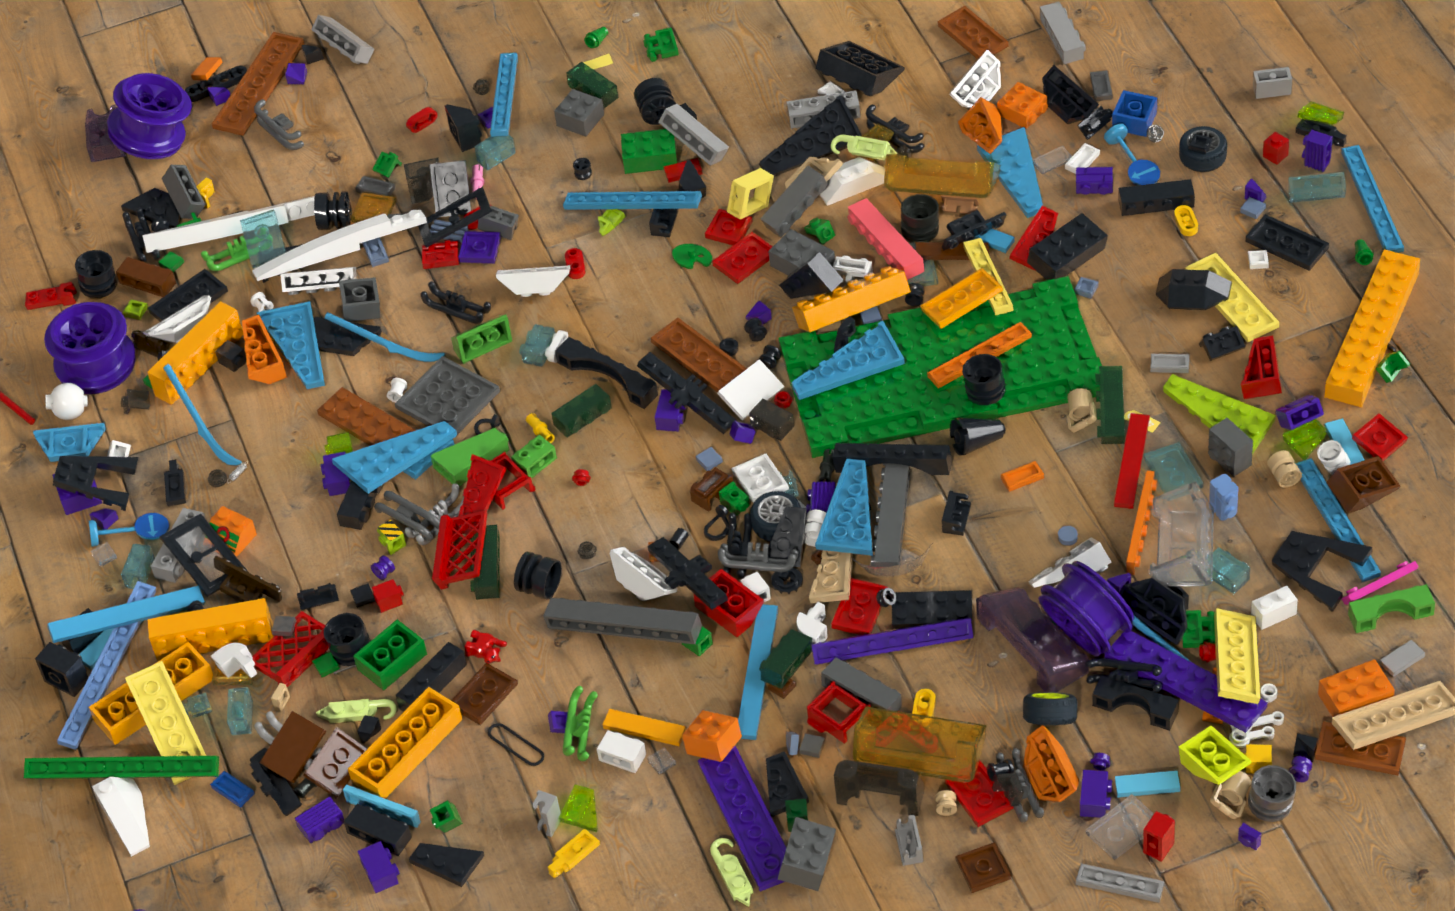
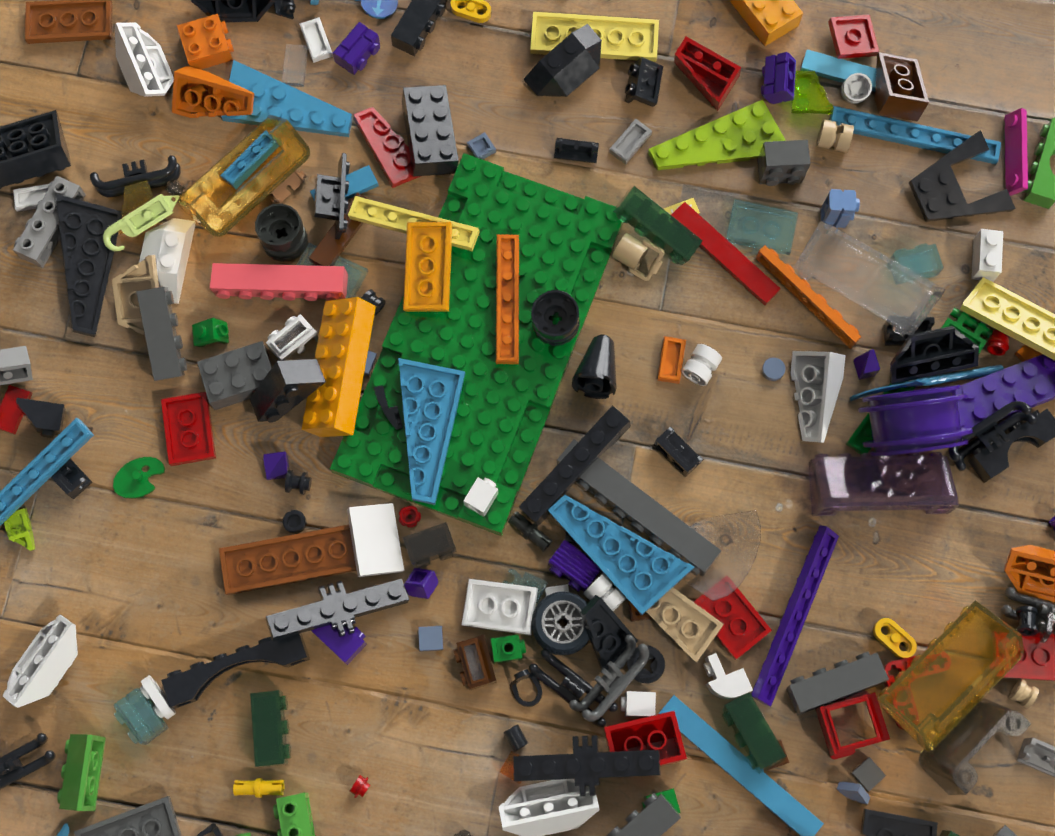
camera: 65 degrees left, 25 degrees up
(575, 259) = (49, 602): red plate -> none
(727, 228) = (133, 417): red plate -> none
(741, 206) = (116, 369): light yellow window -> none
(770, 356) = (346, 495): black wheel -> none
(824, 416) = (481, 496): none -> white brick
(881, 599) = (745, 588): black bush -> none
(930, 607) = (780, 549): black plate -> none
(955, 172) = (249, 160): none -> dark azure tile
(1031, 489) = (701, 365): none -> white wheel
(1050, 708) = (988, 528): black wheel -> none
(1132, 336) = (576, 150): none -> black hinge

